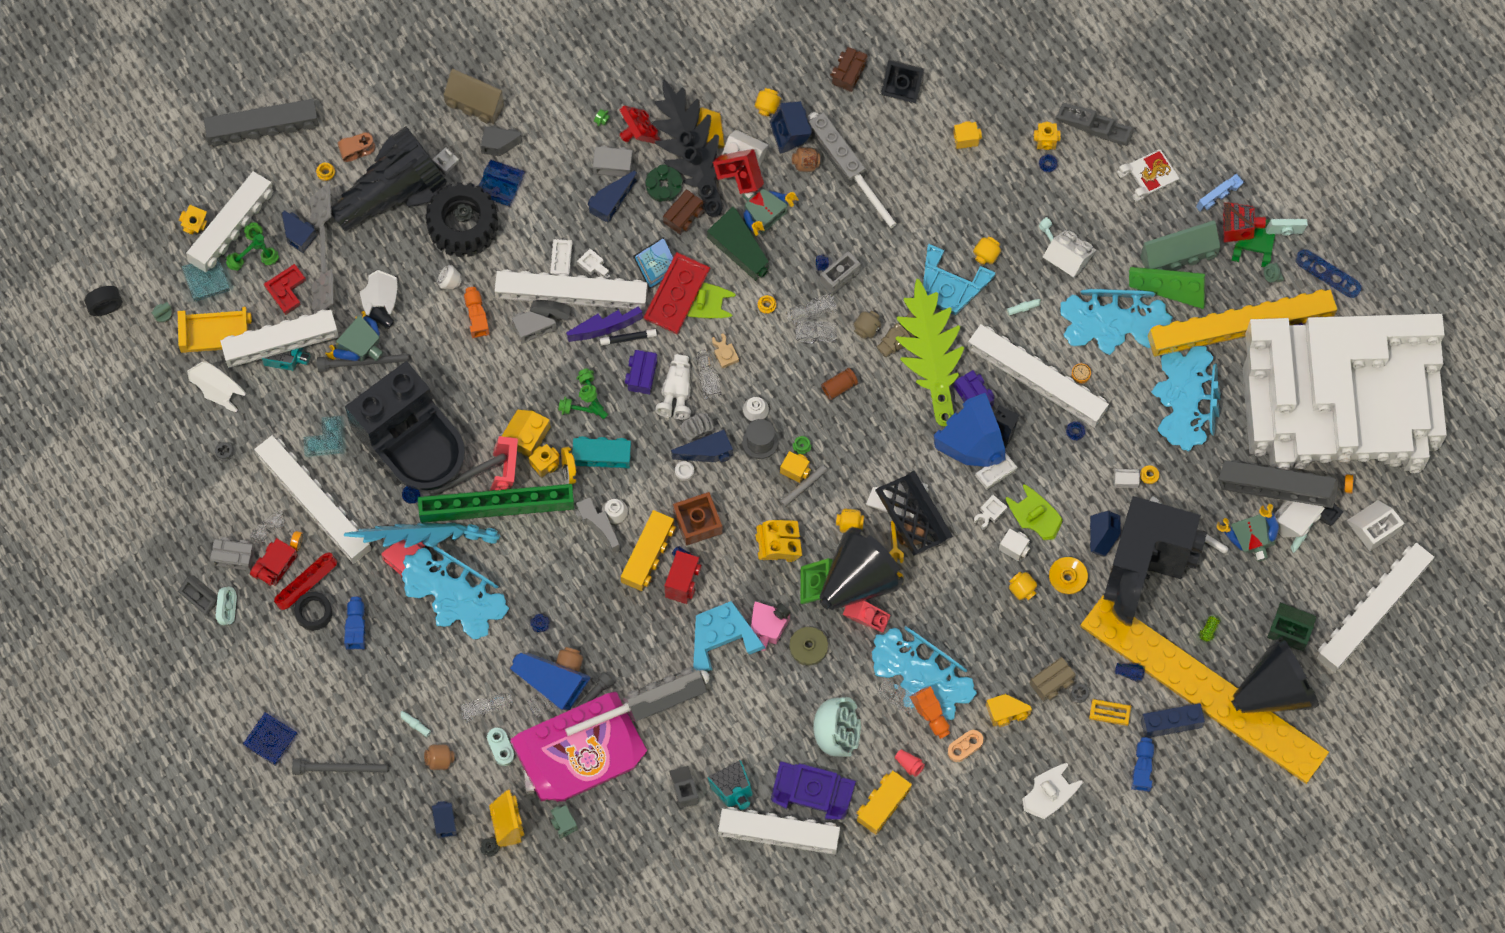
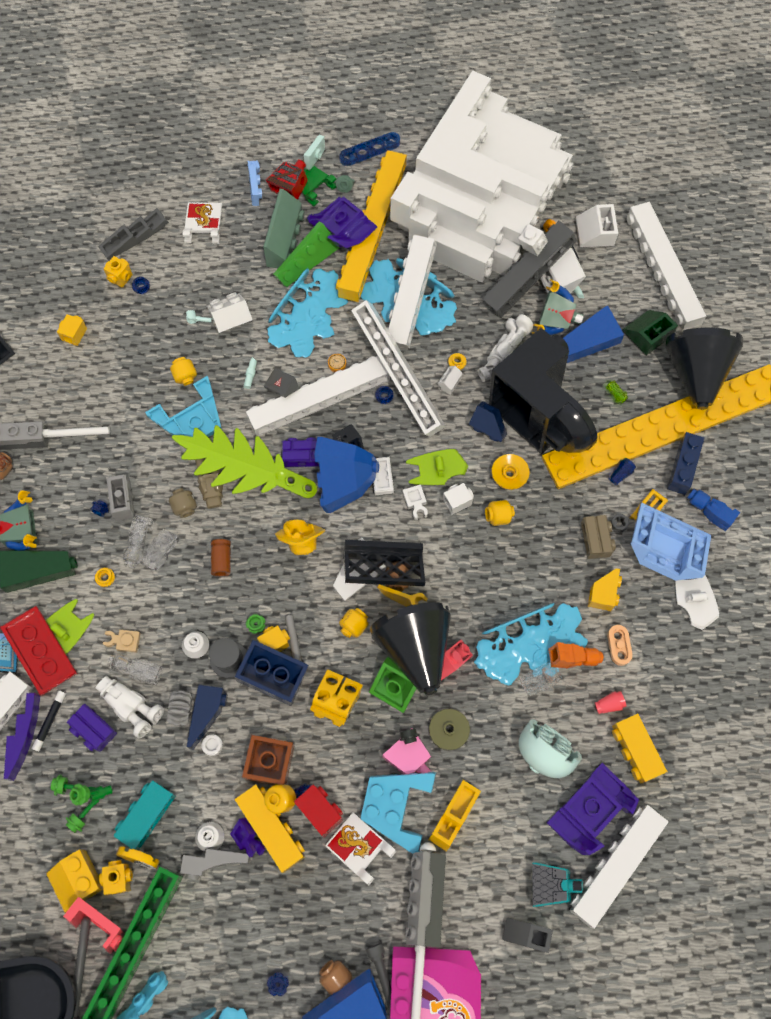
camera: 60 degrees left, 0 degrees up
(630, 534) = (244, 837): none -> dark purple plate
(673, 541) = (280, 798): none -> yellow head
(674, 625) = (358, 846): none -> flag
(741, 685) = (454, 815): none -> yellow slope
(767, 479) = (271, 672): none -> dark blue slope
(896, 434) = (299, 536): none -> yellow hat
(1026, 338) = (281, 383): none -> dark grey slope
(1083, 740) = (669, 545): none -> light blue slope
(1102, 425) = (398, 368): none -> white brick
(1185, 393) = (411, 289): none -> white brick
(1195, 505) = (517, 331): none -> white piece
(1222, 295) = (345, 223): none -> dark purple piece
(1249, 576) = (594, 335): none -> blue slope
(1299, 466) = (533, 240): none -> white brick

